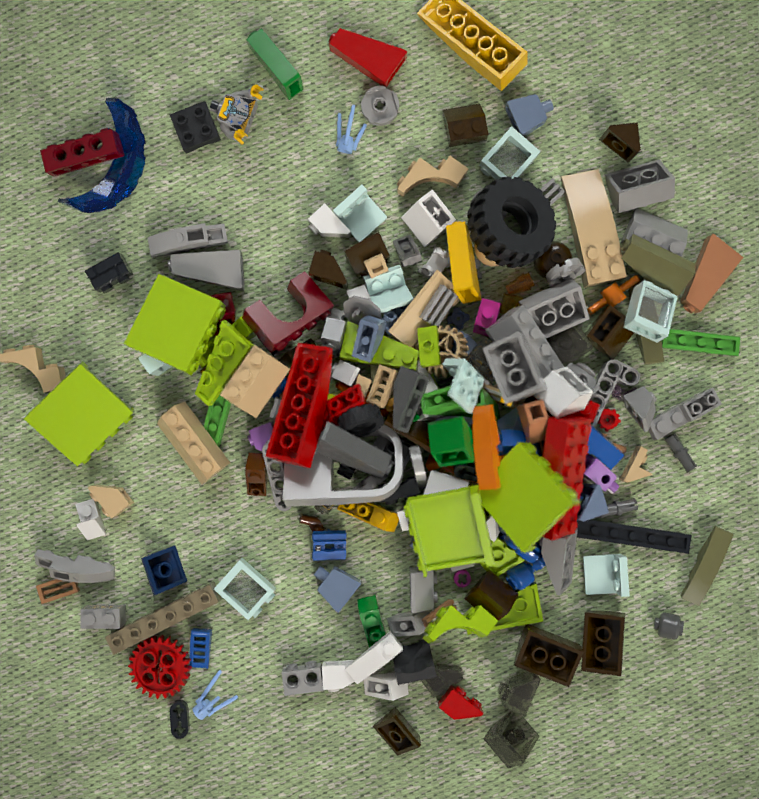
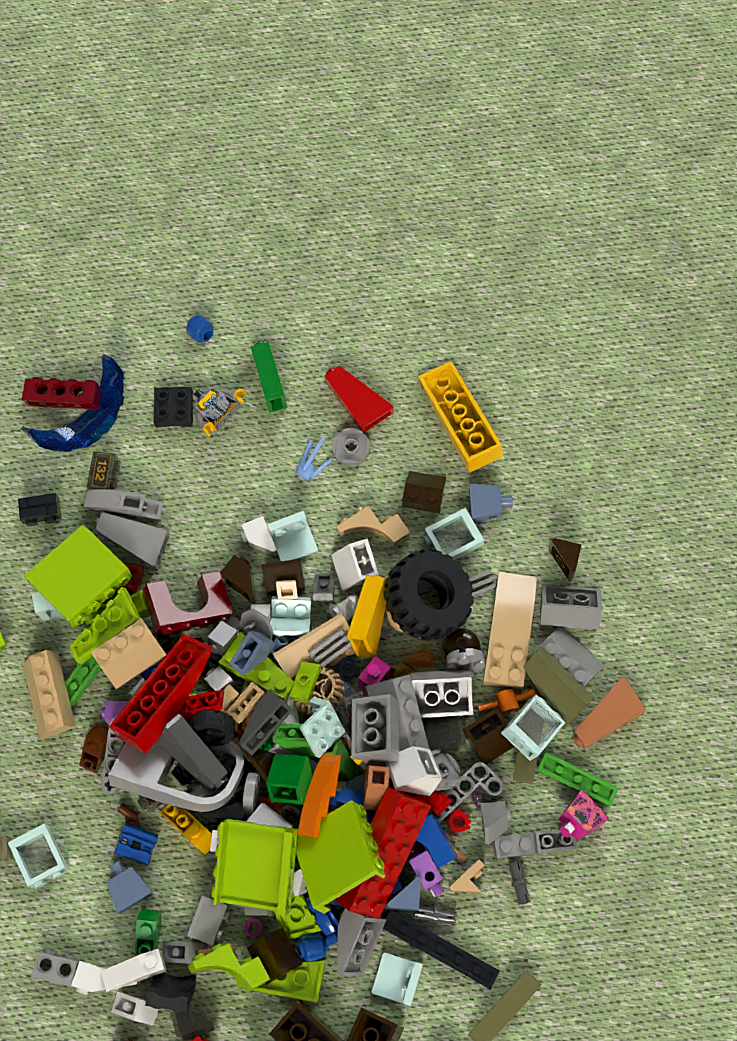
camera: 25 degrees right, 15 degrees down
(154, 214) = (103, 471): none -> clear smoke brick
(189, 39) = (200, 328): none -> blue head
(717, 374) = (581, 817): none -> torso

